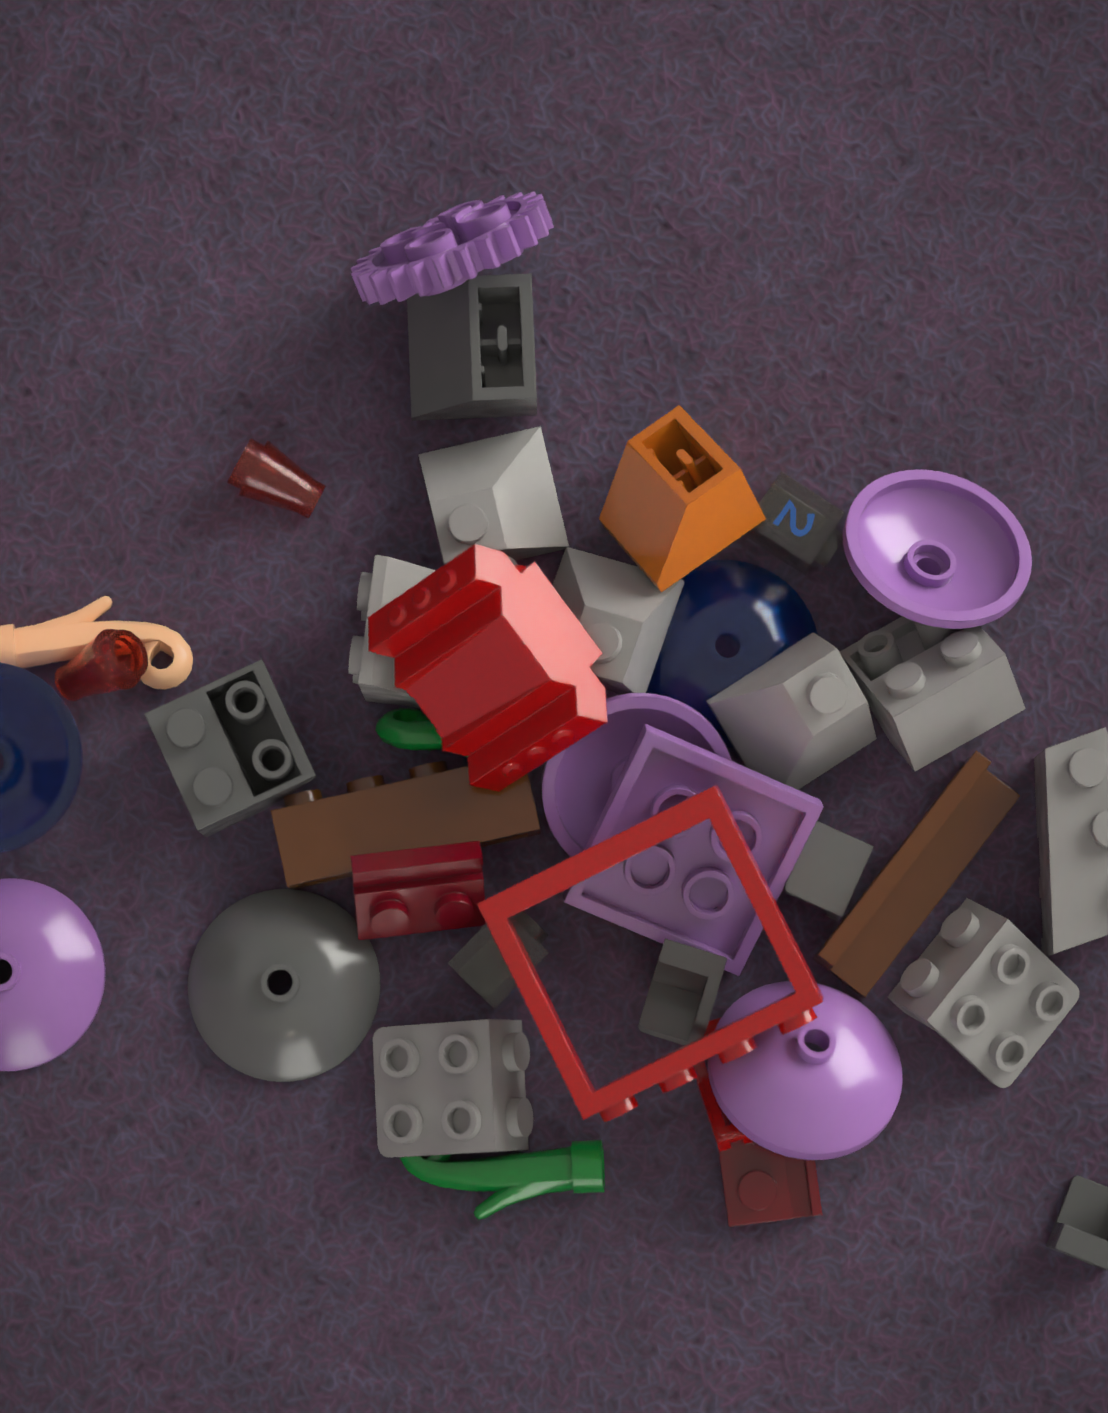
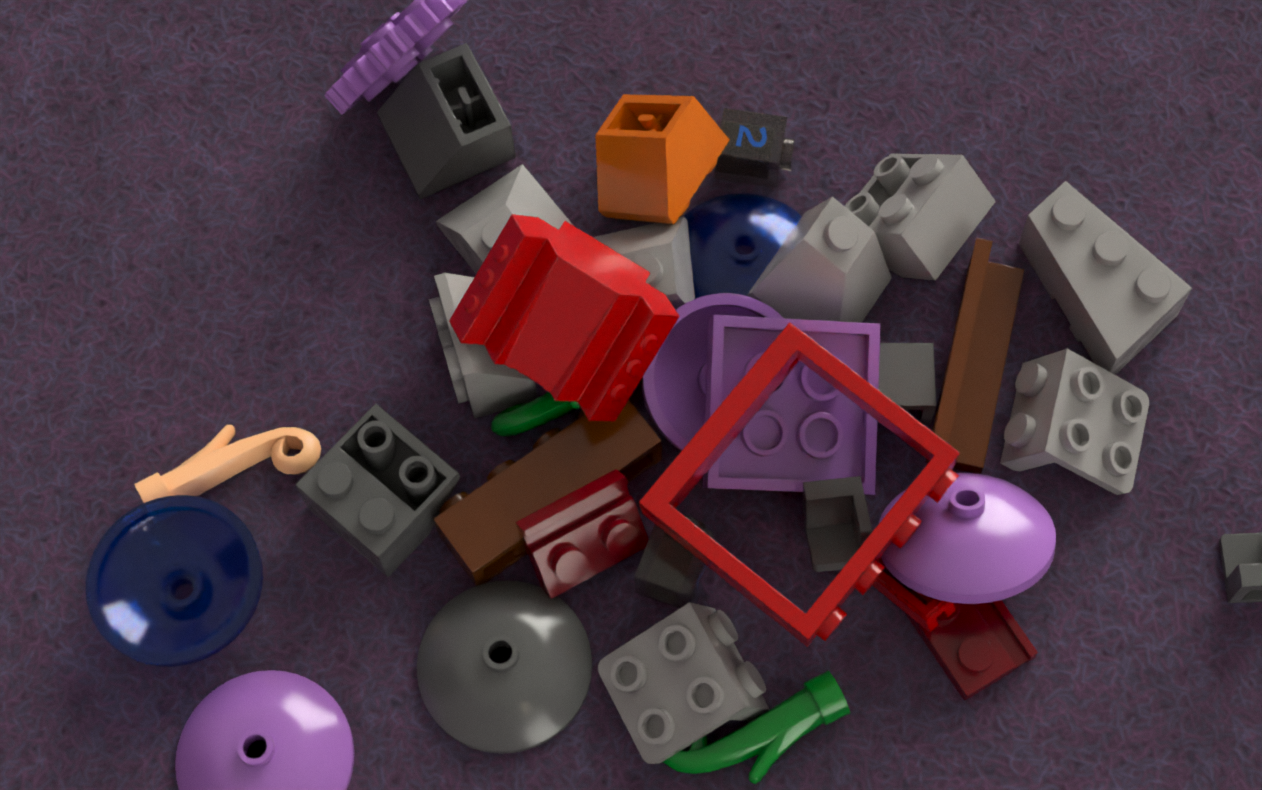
camera: 20 degrees left, 15 degrees down
(104, 665) = (246, 469): clear red cone -> none
(274, 479) = (328, 280): clear red cone -> none
(937, 549) = (869, 117): medium lavender dish -> none

